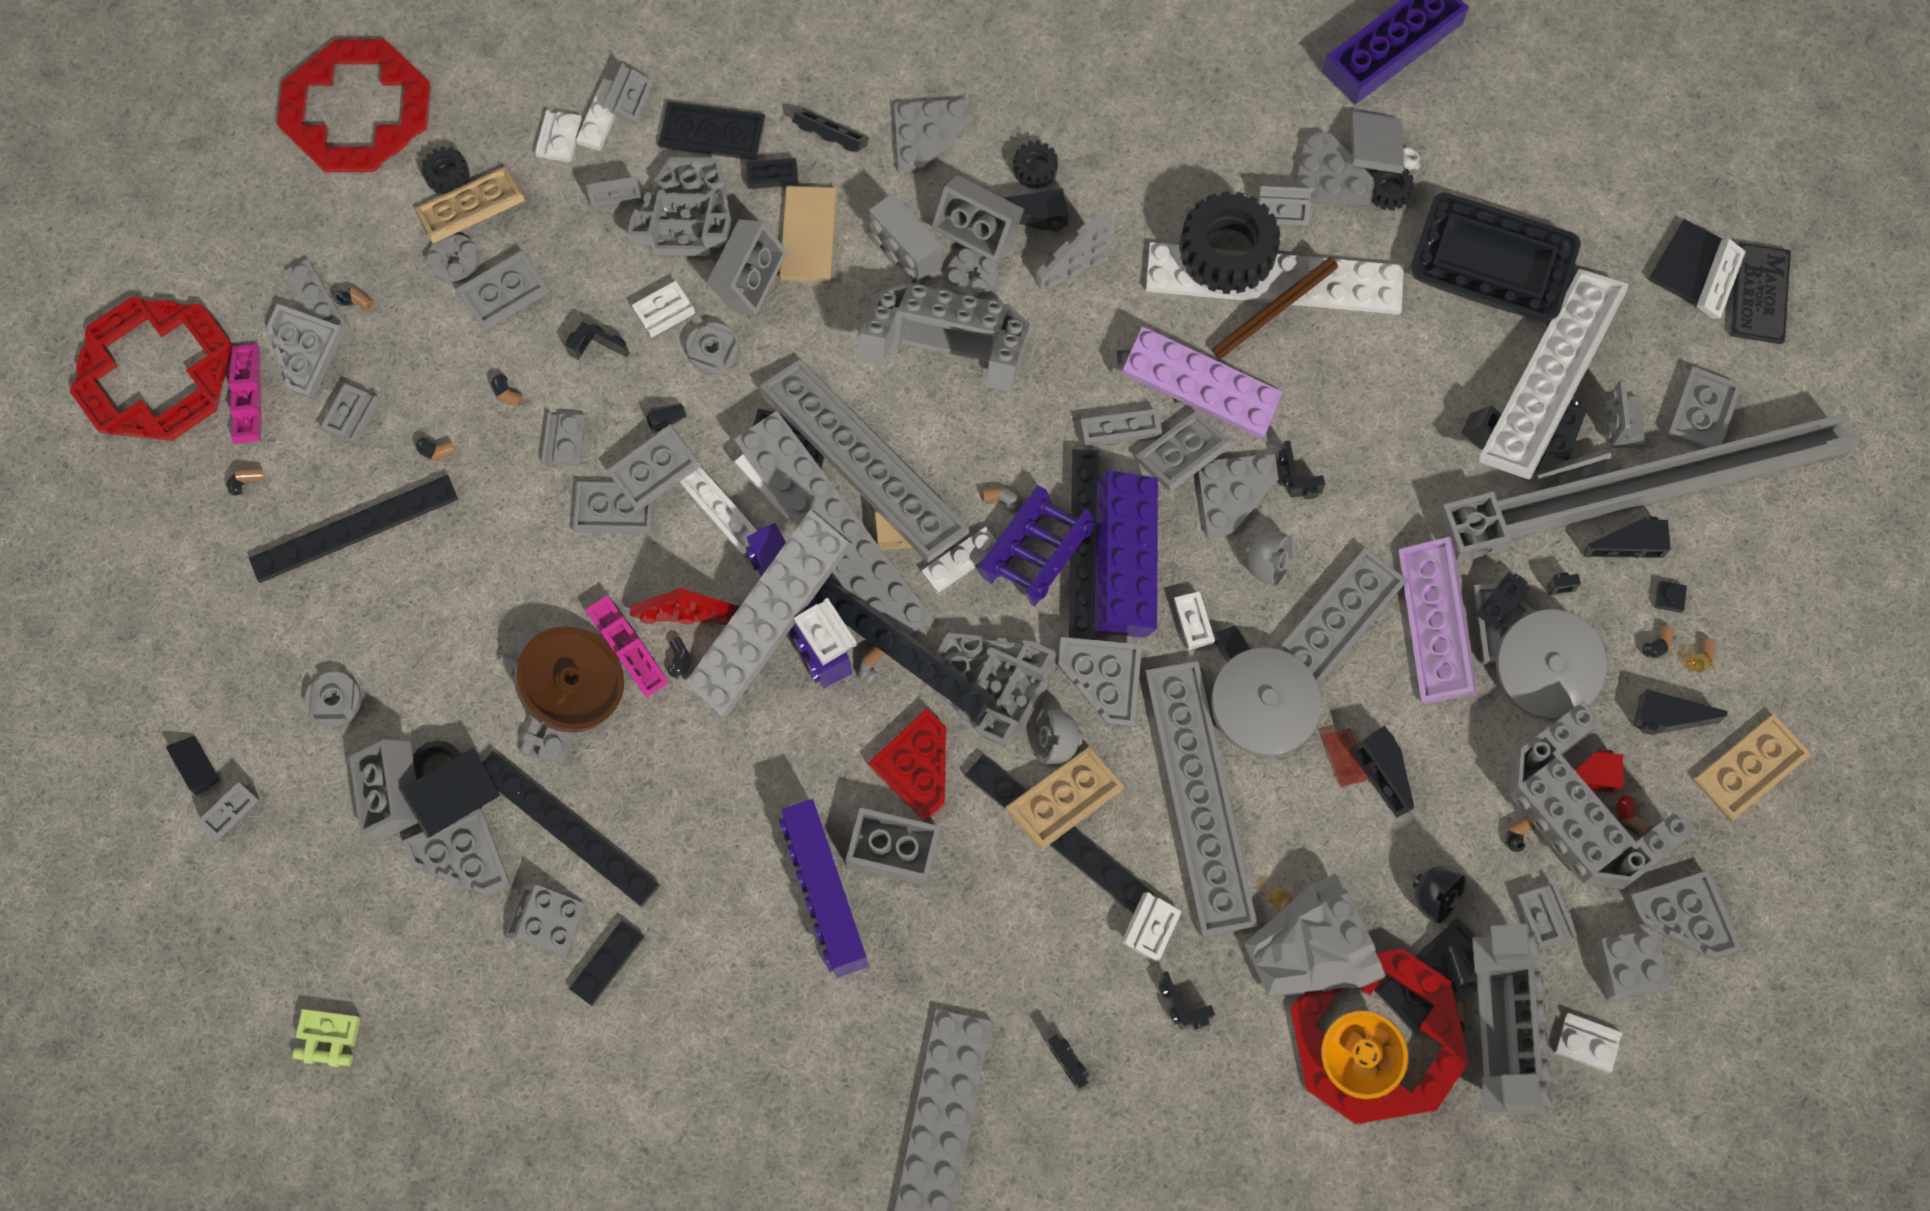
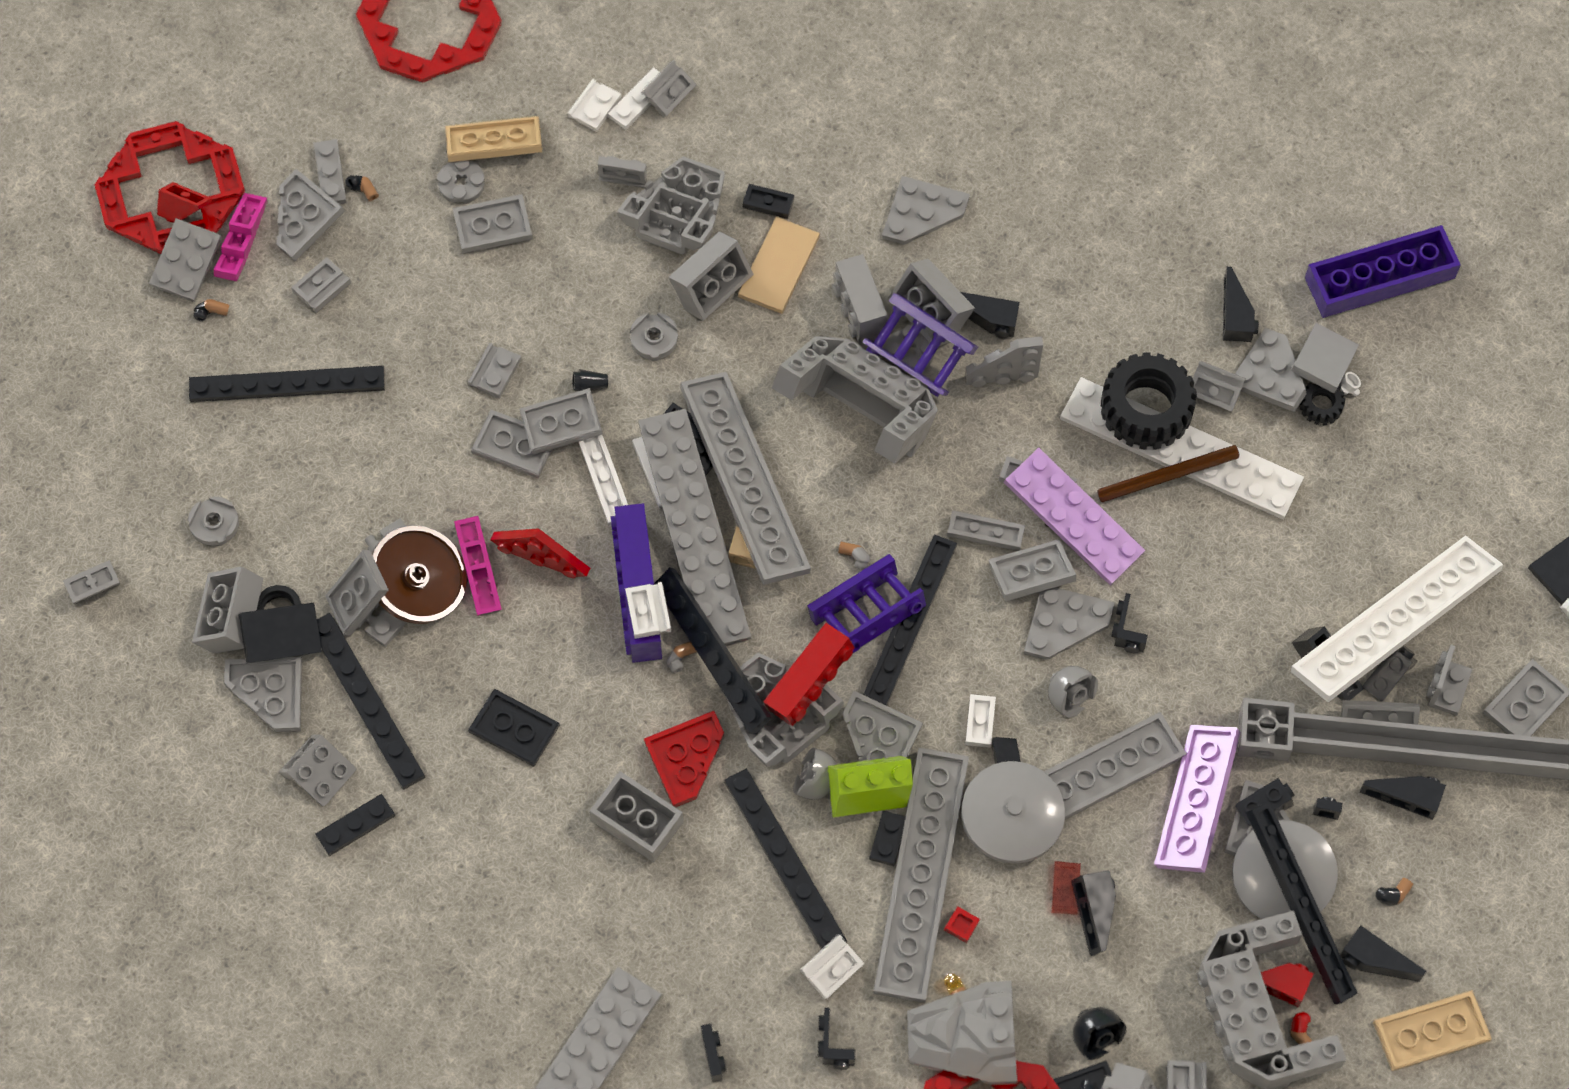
camera: 20 degrees right, 5 degrees down
(167, 379) = (179, 202): none -> red slope
(193, 764) = (77, 534): black slope -> none
(197, 437) = (185, 260): none -> light grey plate
(326, 1028) = (102, 791): yellowish green plate -> none
(433, 451) = (378, 341): arm -> none
(442, 158) = (484, 90): black tyre -> none
(502, 392) = (457, 311): arm -> none
(514, 721) = (356, 592): none -> light grey tile
(585, 333) = (546, 286): black bracket -> none
(663, 309) = (625, 287): white plate -> none
(681, 660) = (519, 594): black arm -> none
(712, 130) = (730, 145): black tile -> none
(730, 800) = (514, 727): none -> black tile
(768, 612) = (606, 578): light grey plate -> none
(822, 881) = (563, 826): dark purple brick -> none
(830, 130) = (834, 180): black plate -> none
(959, 560) = (794, 595): white plate -> none
(1002, 247) = (940, 334): none -> dark purple fence
(1012, 638) = (809, 674): none -> red brick
(1032, 177) = (1006, 260): black tyre -> none
(1064, 798) = (799, 831): tan tile -> none
(1116, 727) = (870, 785): none -> lime slope
(1126, 554) = (942, 641): dark purple brick -> none
(1151, 773) = (888, 838): none -> black plate
(1261, 834) = (962, 924): none -> red plate
(1273, 124) = (1238, 312): none -> black slope
(1495, 257) = (1389, 498): black wedge -> none
(1516, 832) = (1190, 1010): arm -> none
(1586, 688) = (1302, 903): none -> black plate
(1670, 596) = (1423, 855): black plate -> none
(1704, 659) = (1430, 921): clear yellow arm -> none

